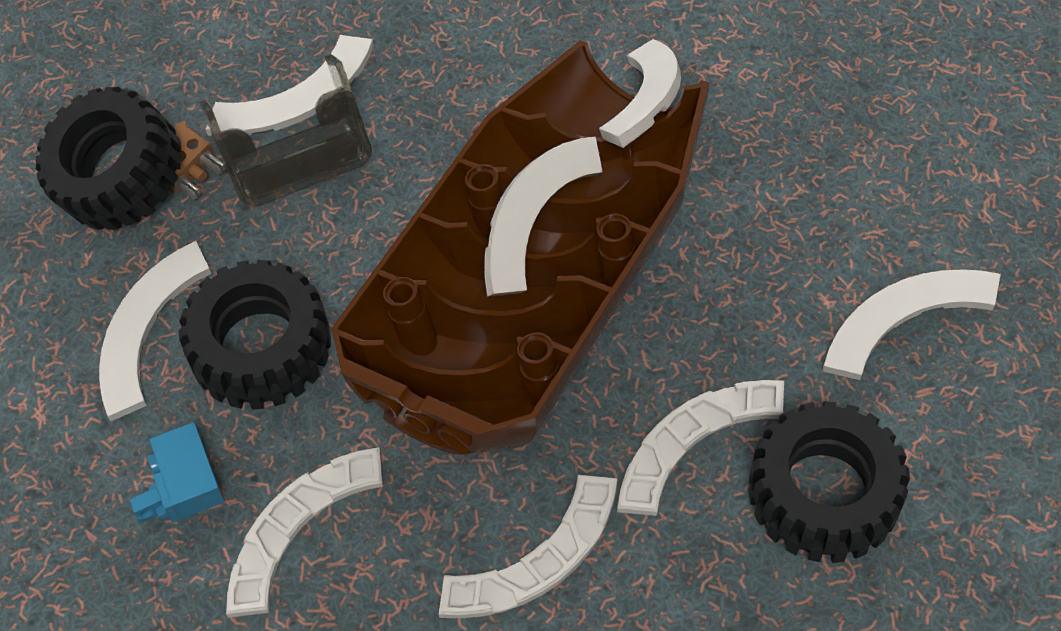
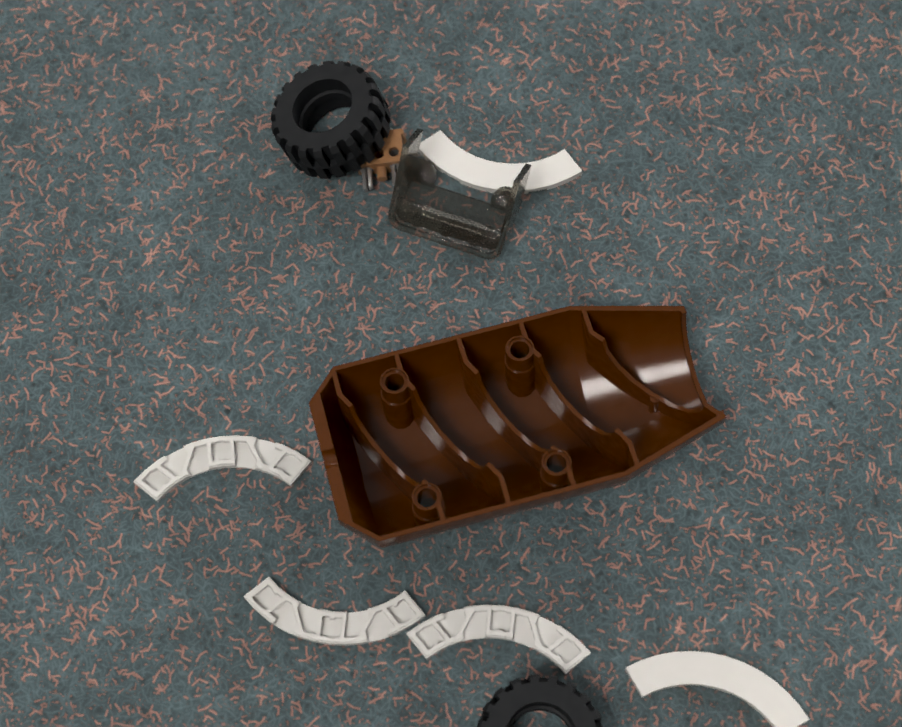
camera: 45 degrees right, 10 degrees up
(132, 322) = (254, 243): white tile -> none
(181, 476) = (188, 375): dark azure hinge -> none
(263, 374) = (297, 284): black tyre -> none
(521, 205) = (533, 387): white tile -> none
(656, 94) = (709, 384): white tile -> none

